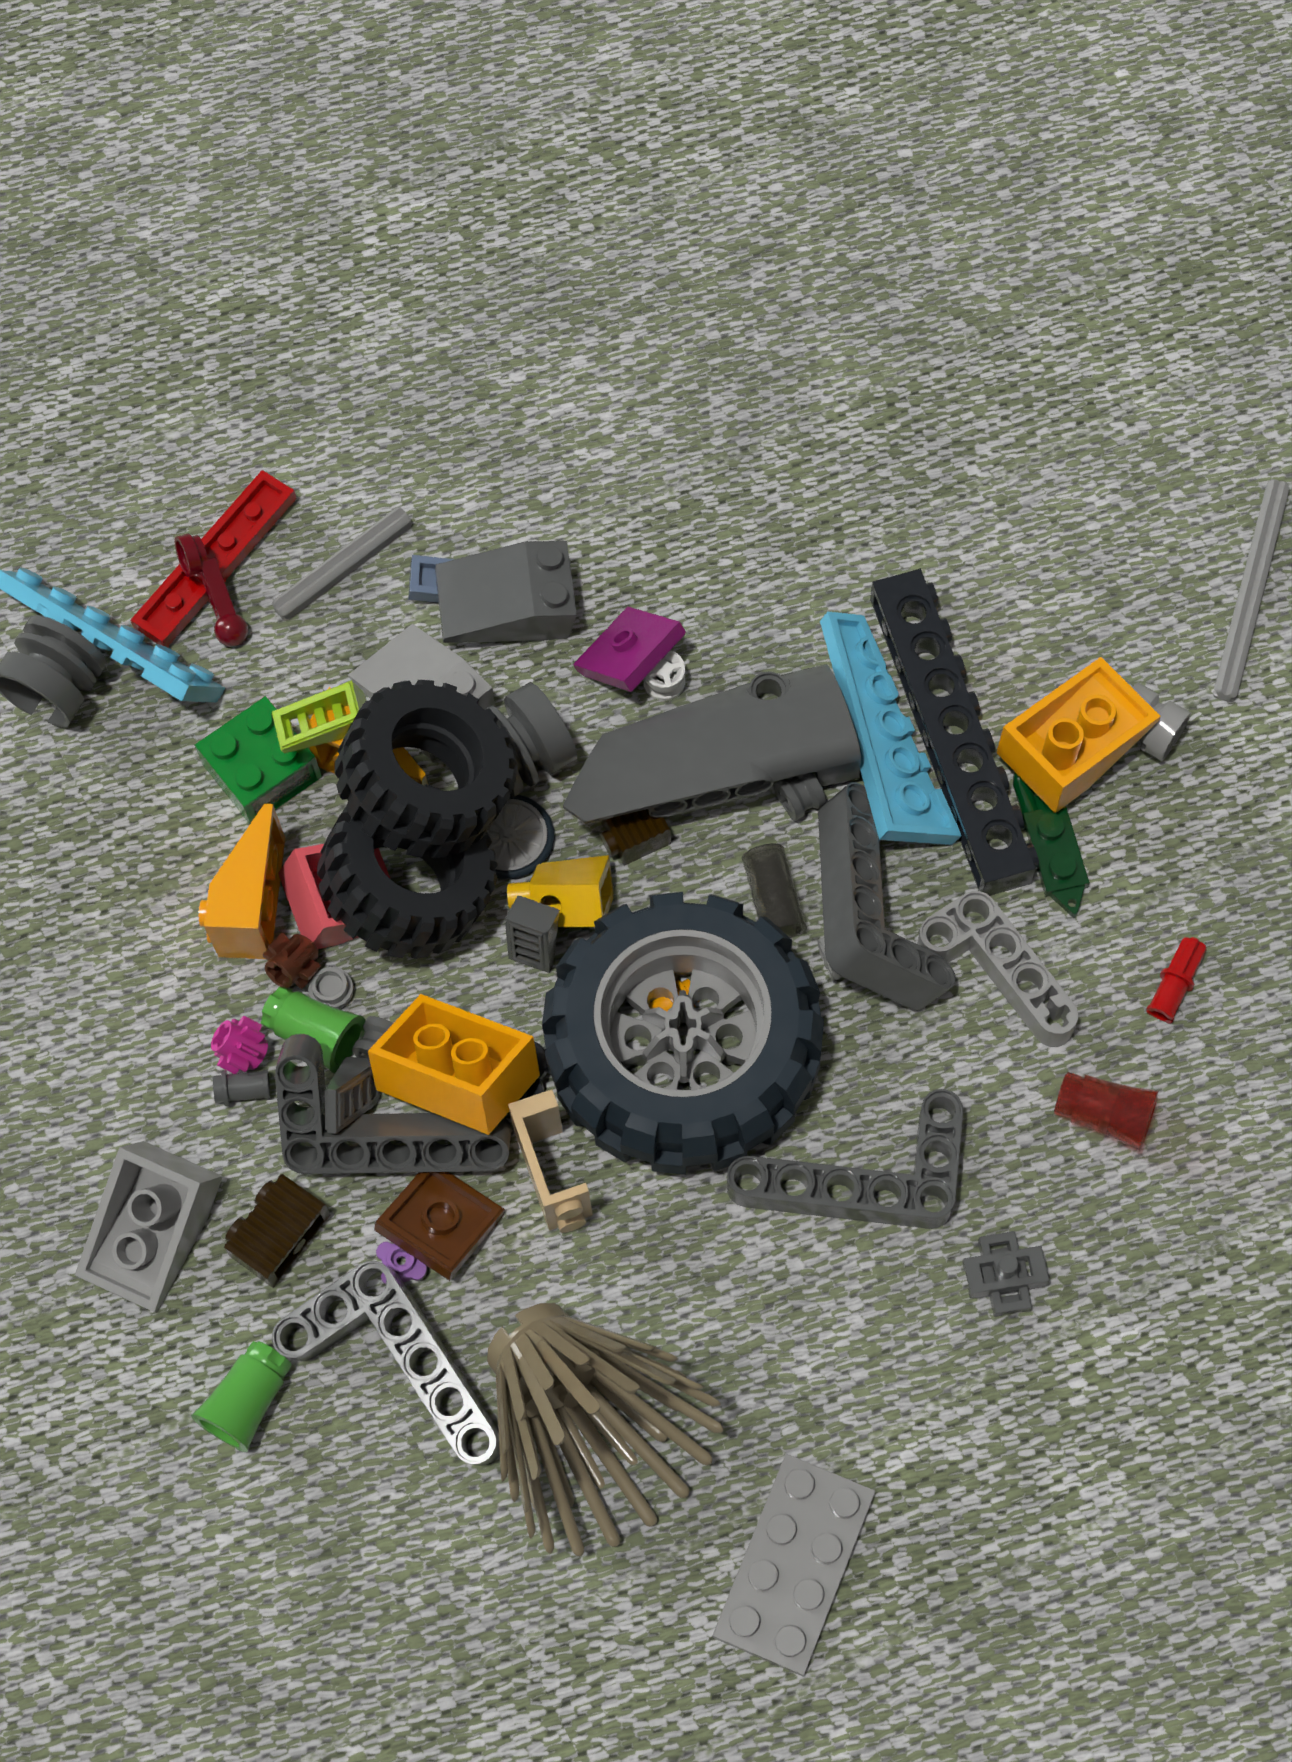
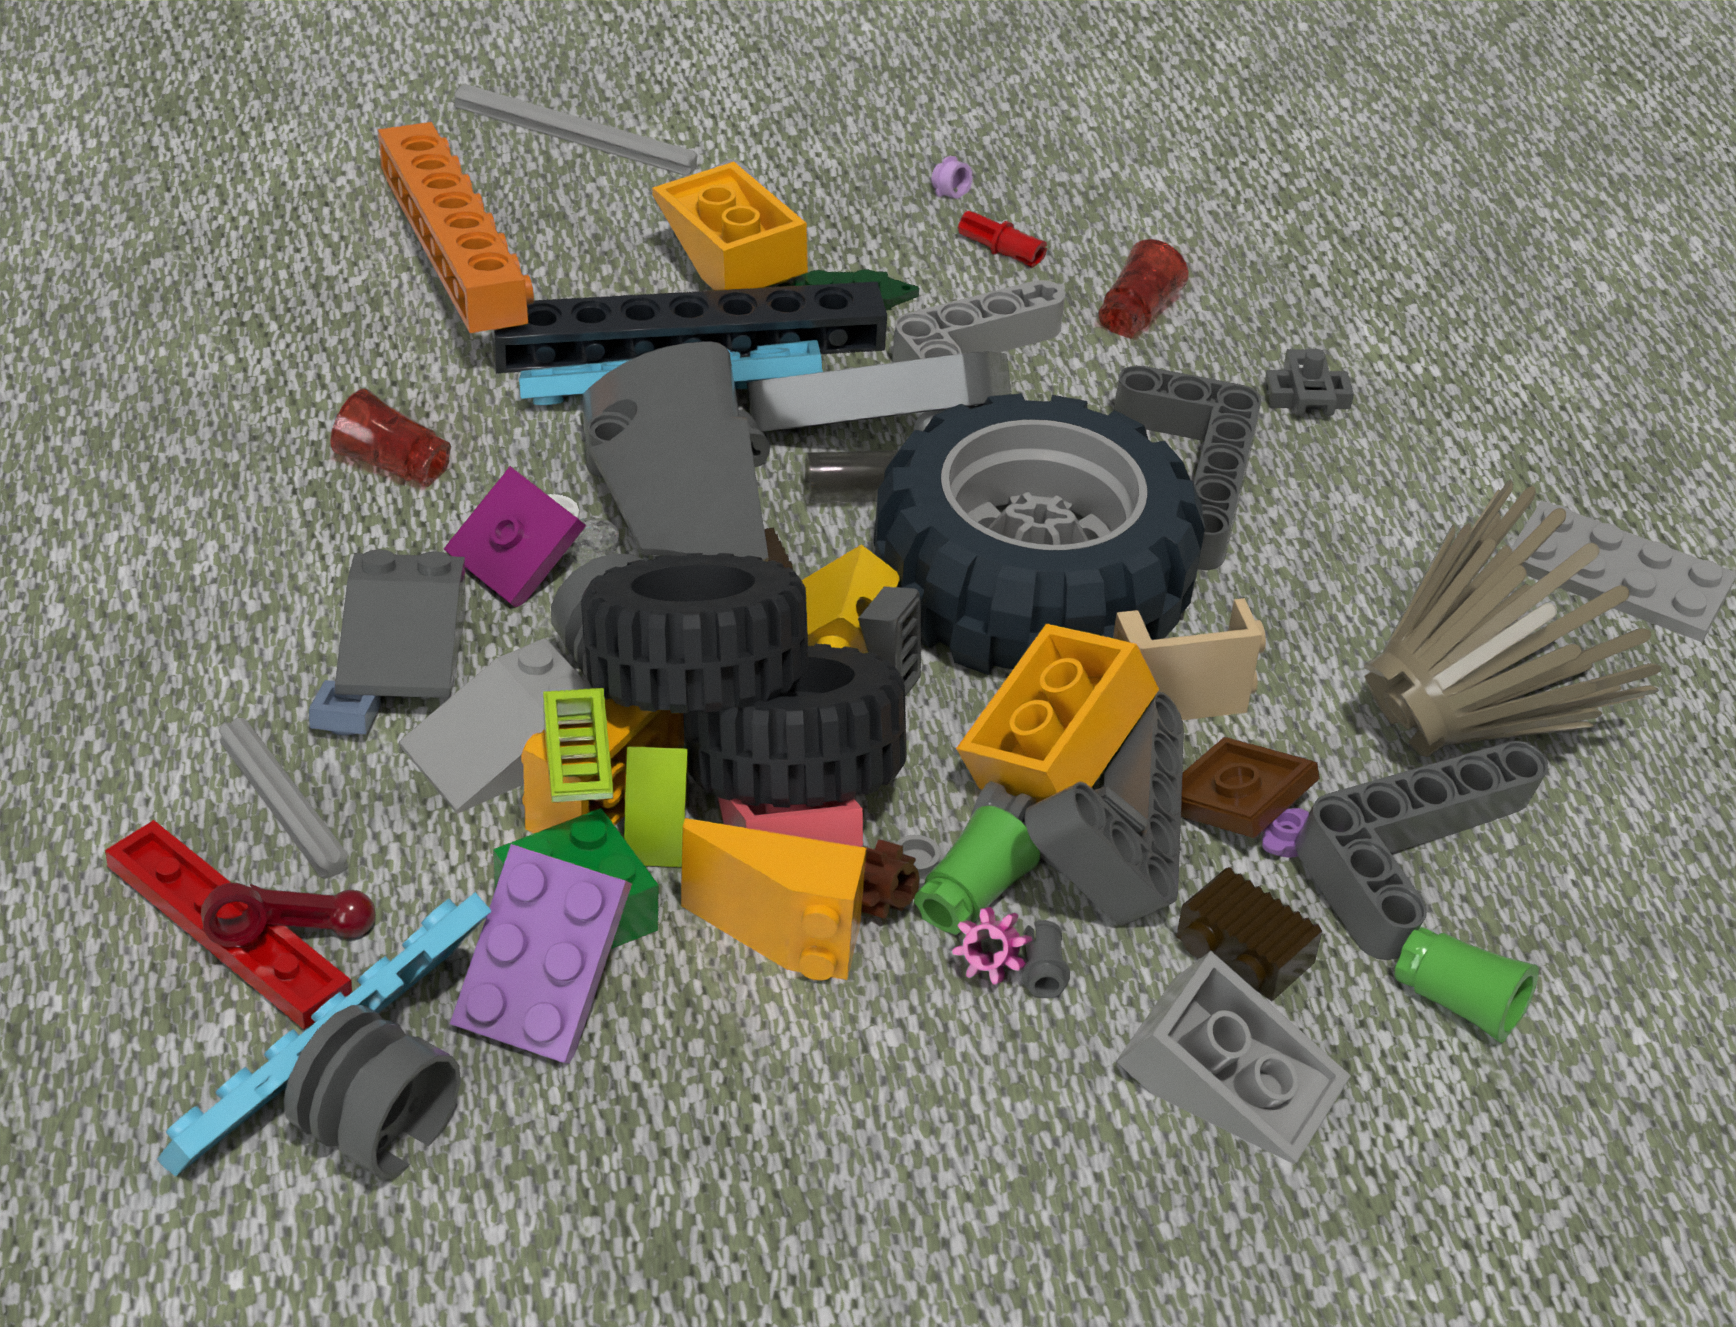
camera: 90 degrees left, 25 degrees down
(175, 745) = (541, 954): none -> medium lavender plate
(326, 800) = (655, 804): none -> lime slope
(640, 700) = (596, 540): none -> clear wheel
(737, 538) = (388, 439): none -> clear red plant
(1023, 515) = (454, 228): none -> orange brick
(1268, 919) = (952, 175): none -> lavender plate

